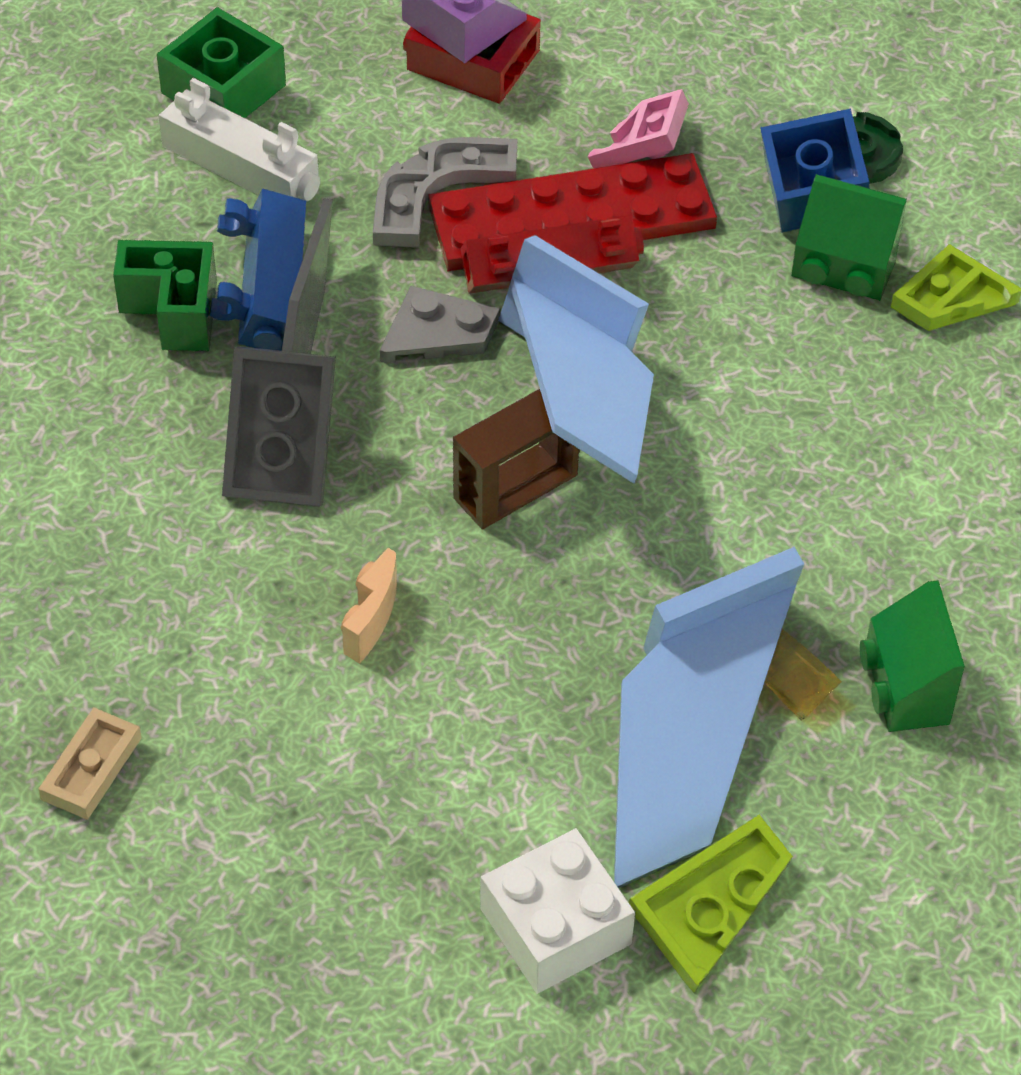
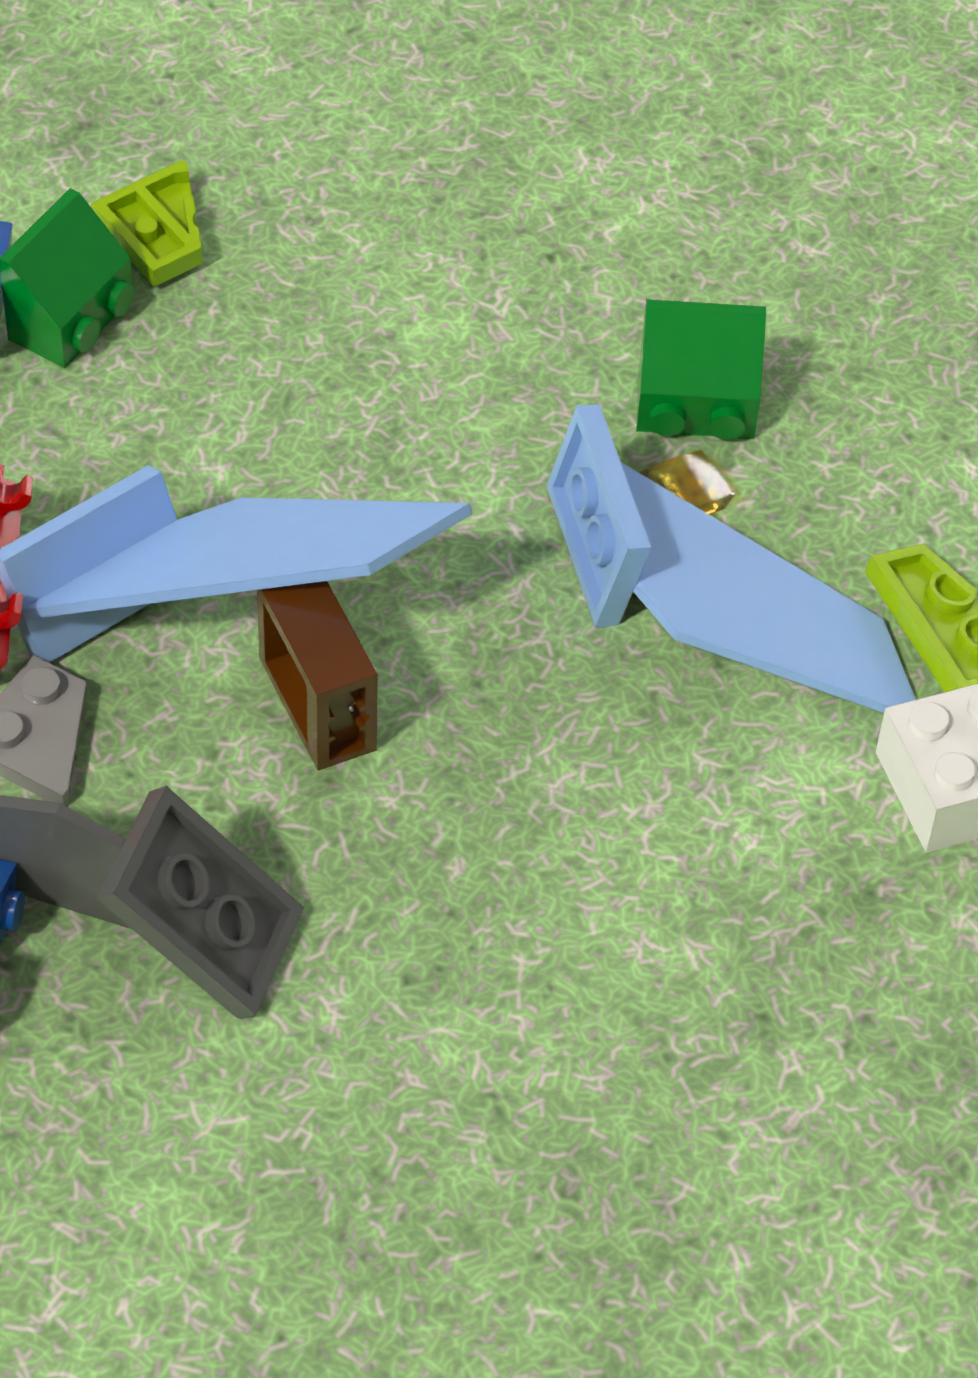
camera: 80 degrees left, 0 degrees up
(90, 763) = (665, 1219): tan plate -> none
(376, 598) = (477, 859): light nougat slope -> none

